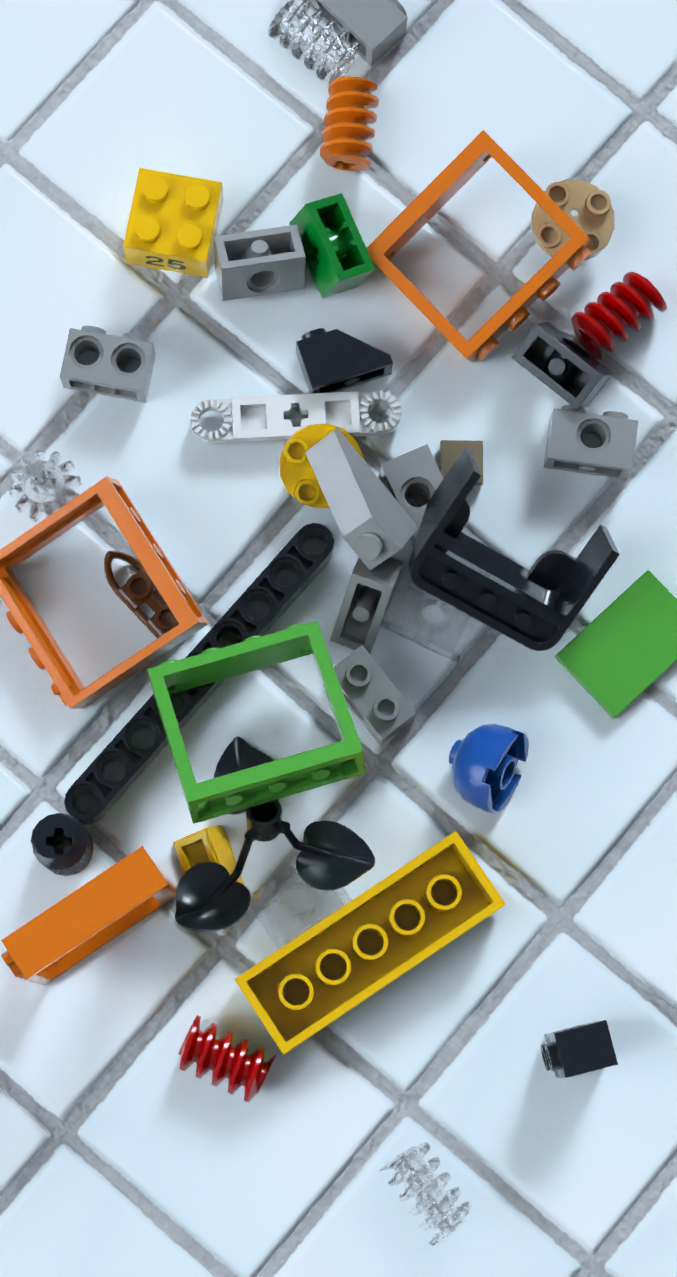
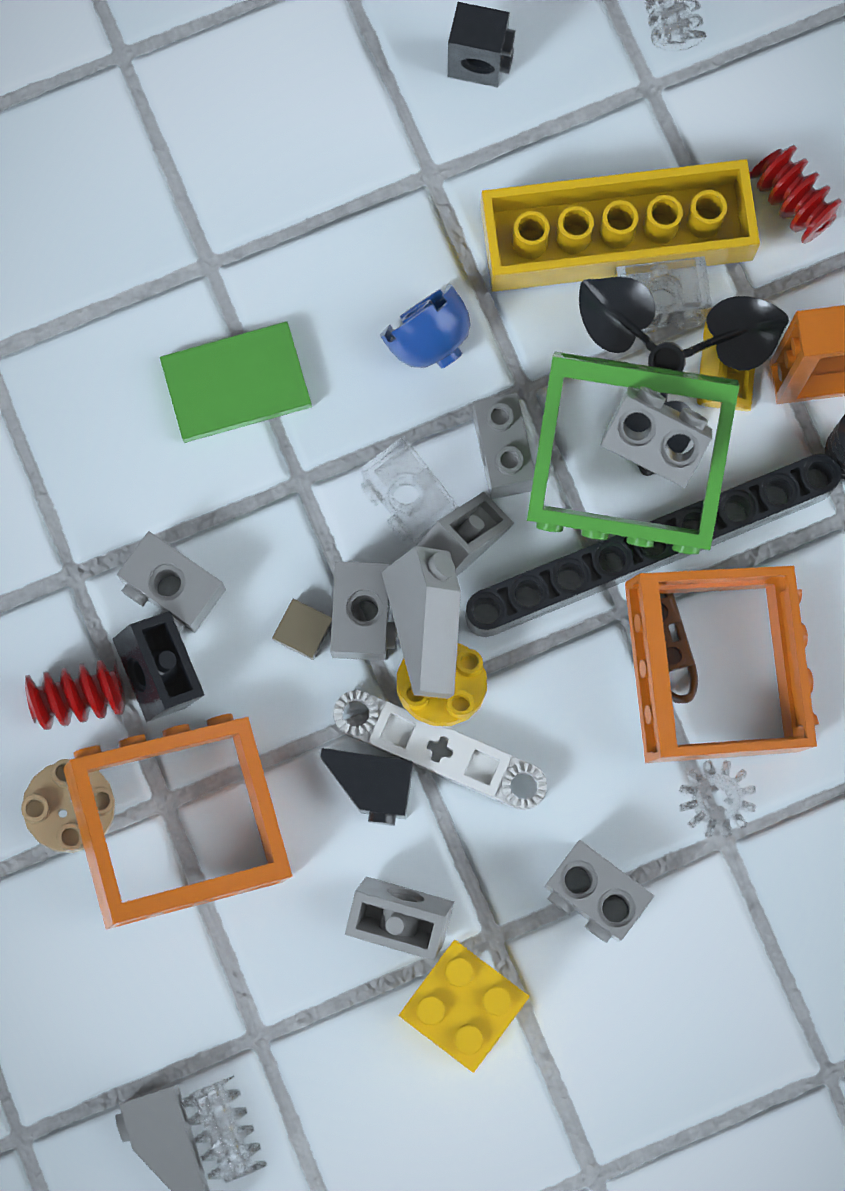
camera: 145 degrees left, 0 degrees up
(237, 716) = (650, 446): none -> light grey brick
(332, 245) = (318, 899): green brick -> none
(347, 123) = (236, 1021): orange piece -> none
(518, 602) = (334, 478): black windscreen -> none

